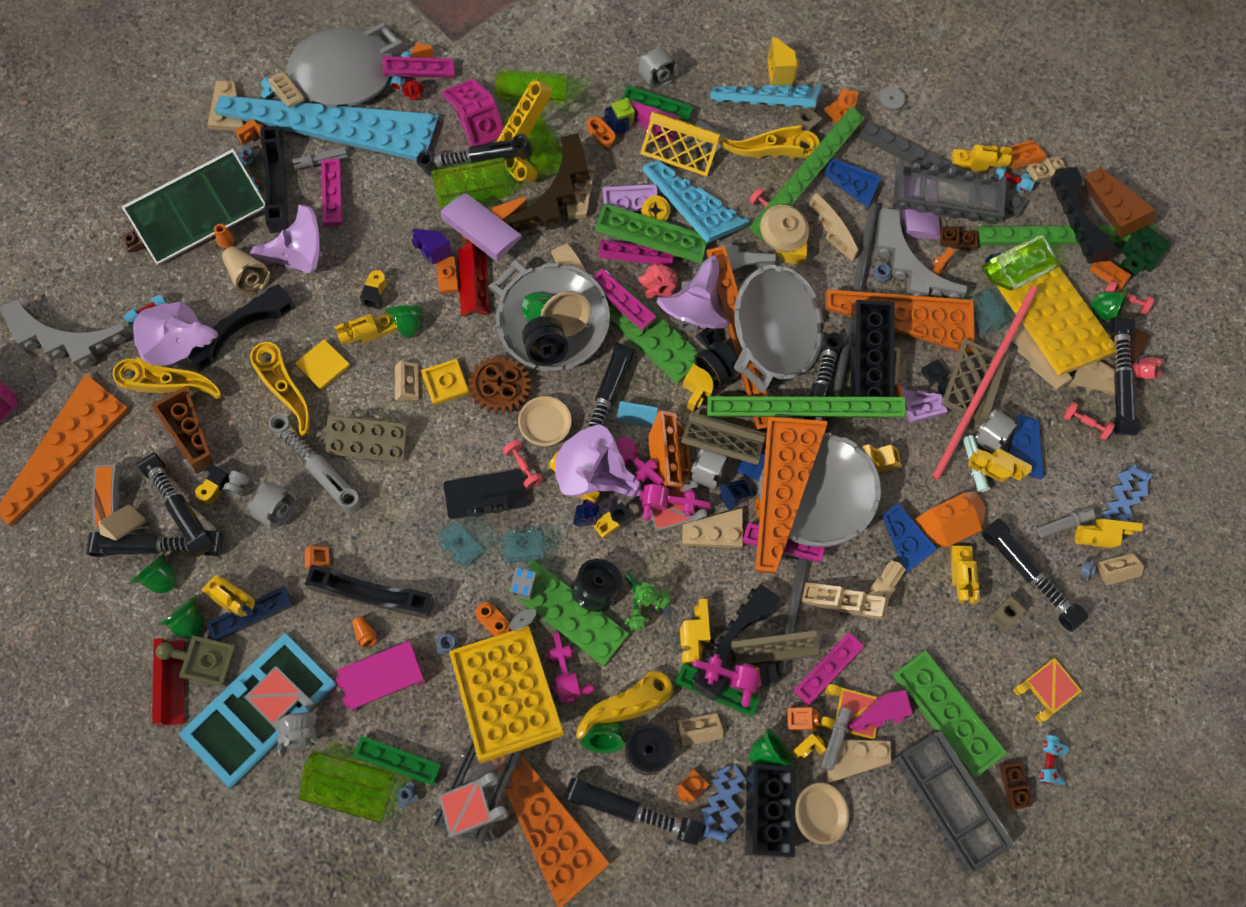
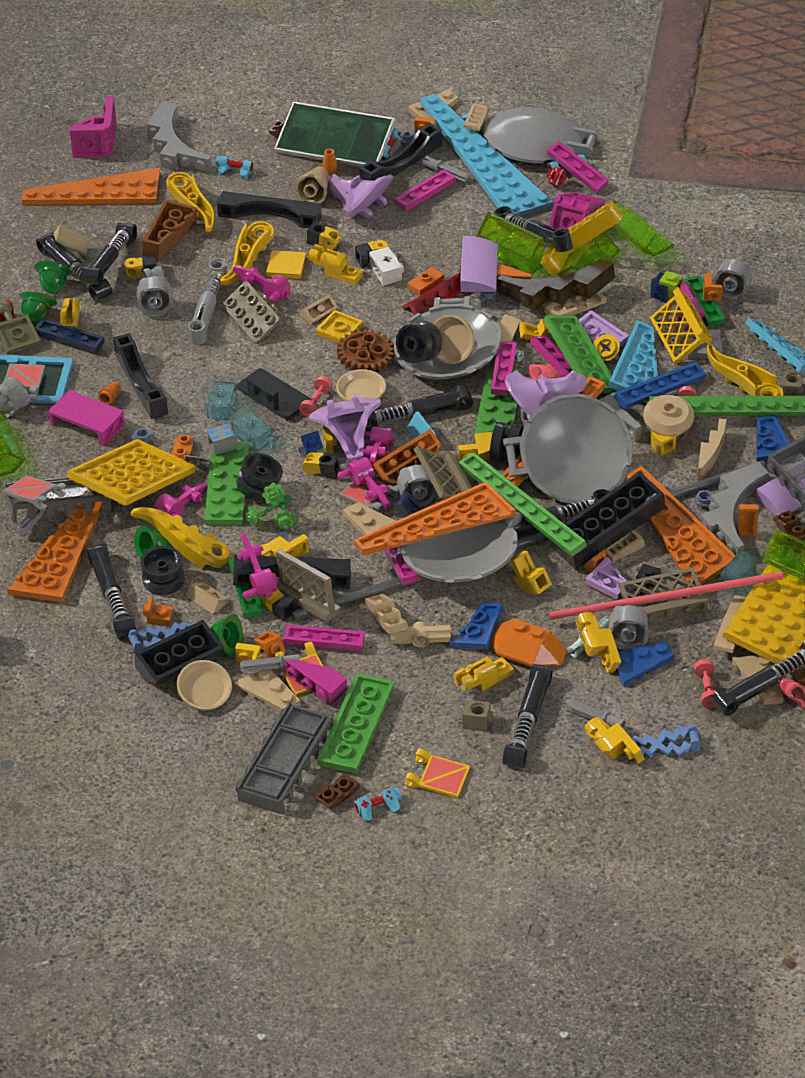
camera: 60 degrees right, 25 degrees down
(105, 492) = (89, 221): slope -> none
(169, 333) = (224, 173): lavender animal -> none
(317, 310) = (323, 235): none -> leg
(317, 556) = (143, 343): orange slope -> none
(353, 396) = (274, 289): none -> dark pink piece
(397, 760) = (34, 455): green plate -> none
(403, 290) = (386, 266): none -> white brick
(406, 318) = (364, 277): green piece -> none
(411, 798) = (15, 475): sand blue plate -> none
(423, 51) = (595, 161): orange slope -> none
(432, 244) = (437, 256): dark purple slope -> none
(588, 243) = (528, 330): none -> yellow bracket
(602, 133) = (641, 286): orange plate -> none
(656, 92) = (711, 291): none -> orange bracket
(738, 207) = (660, 385): none -> blue plate
(1088, 569) = (567, 742): sand blue plate -> none
(1120, 568) = (592, 771): tan slope -> none

